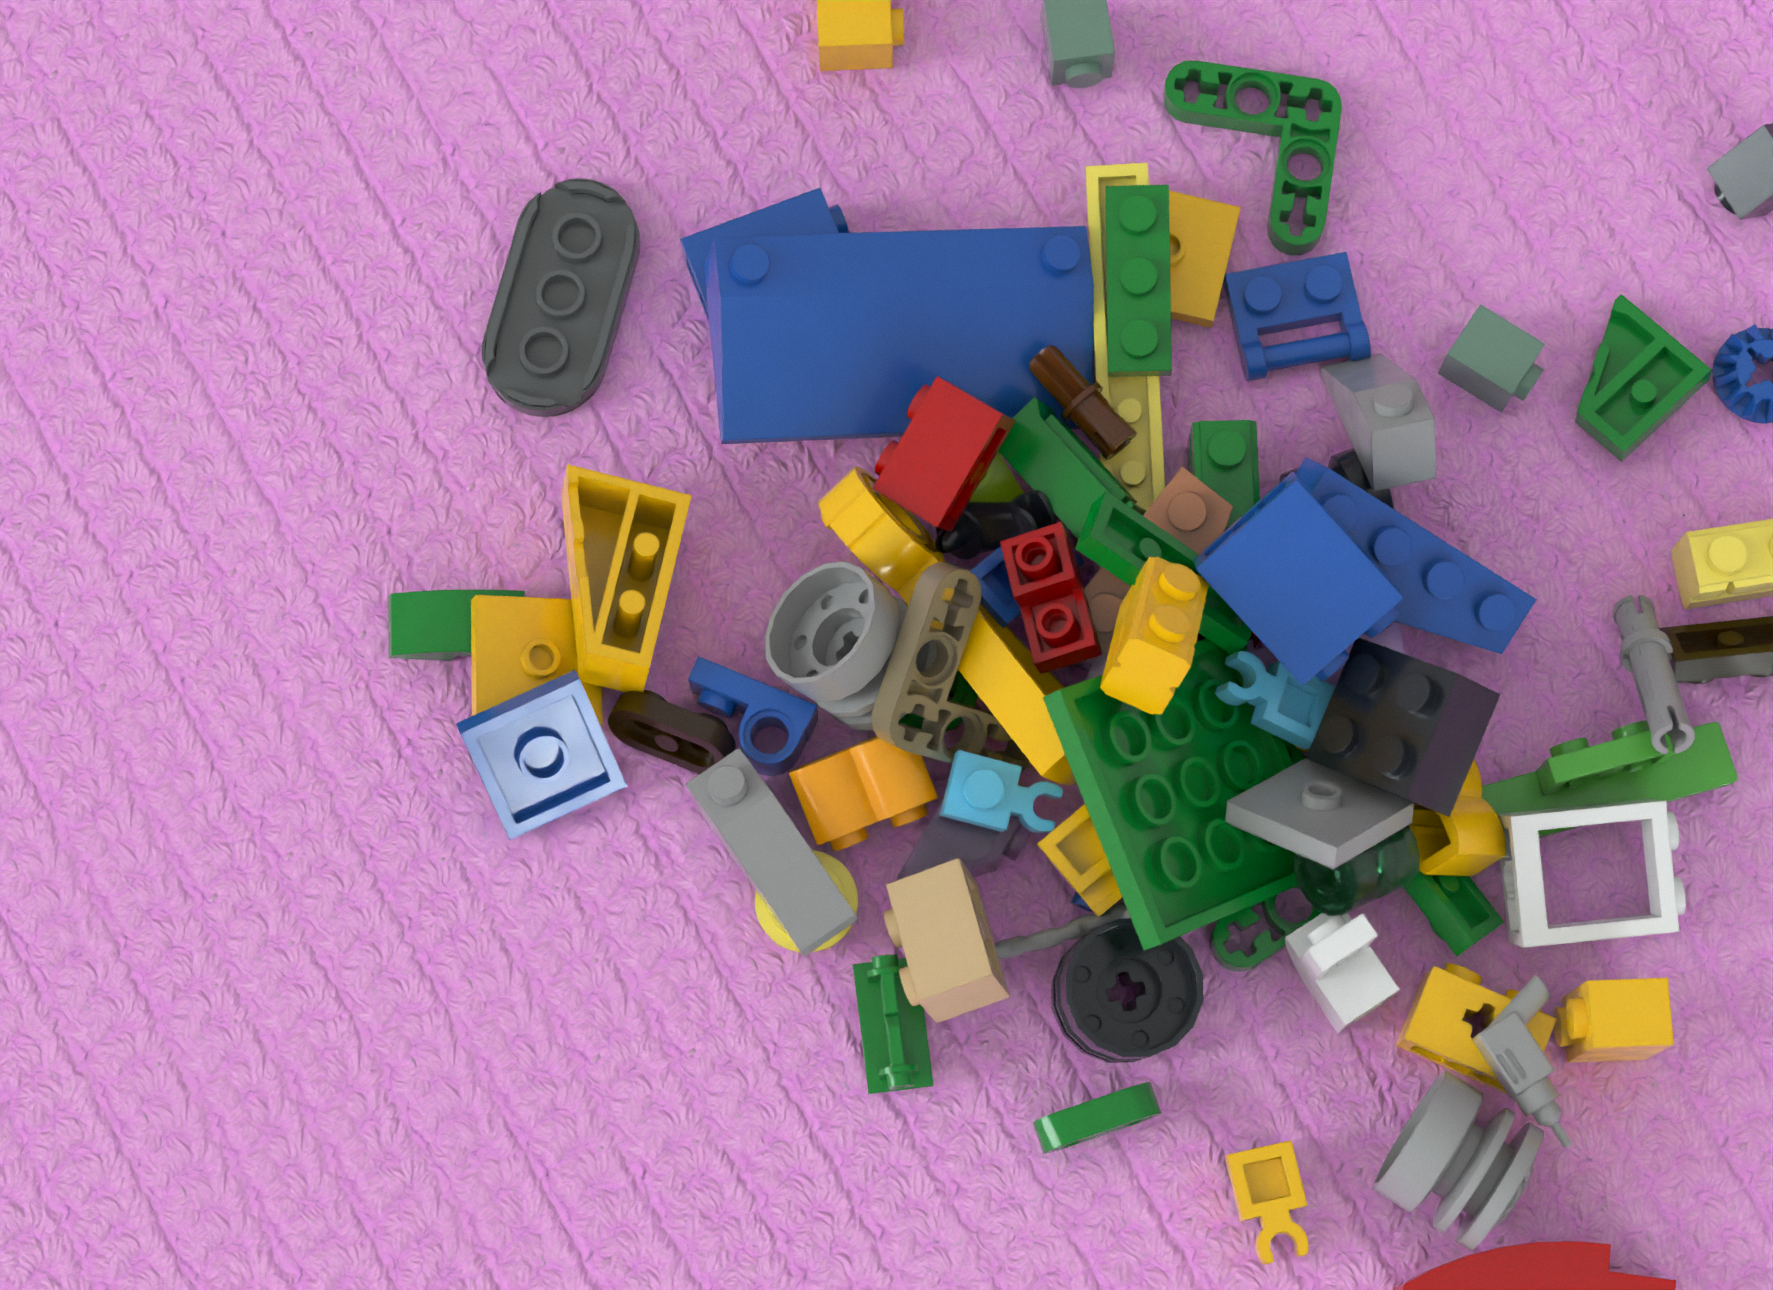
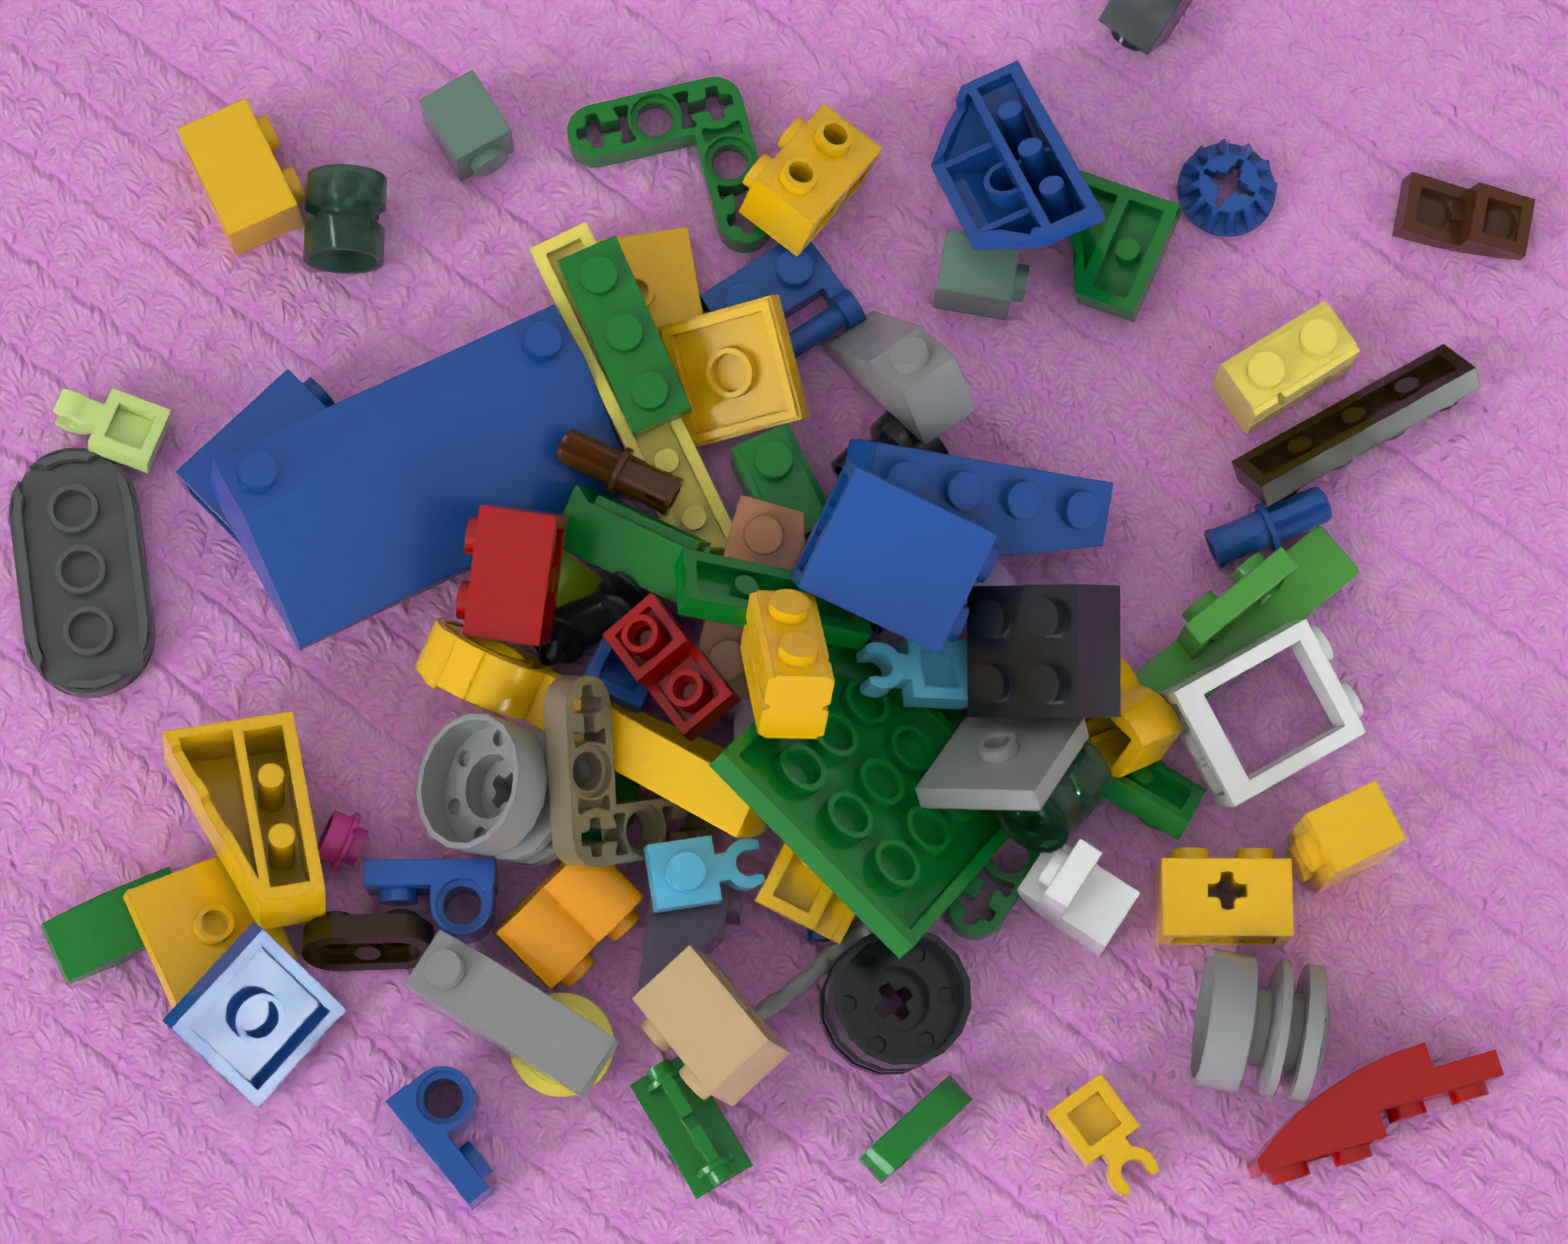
camera: 30 degrees left, 0 degrees up
(648, 182) = (120, 430): none -> yellowish green plate
(668, 971) = (461, 1166): none -> blue plate
(687, 632) = (342, 840): none -> dark pink plate
(932, 70) = (345, 214): none -> clear green wheel
(1228, 354) = (736, 370): none -> yellow plate
(1371, 206) = (808, 179): none -> yellow brick
(1520, 1060) = (1274, 910): light grey piece -> none
(1564, 272) = (1010, 168): none -> blue wedge
(1648, 657) = (1233, 492): light grey pin -> none
(1701, 701) = (1268, 526): none -> blue axle

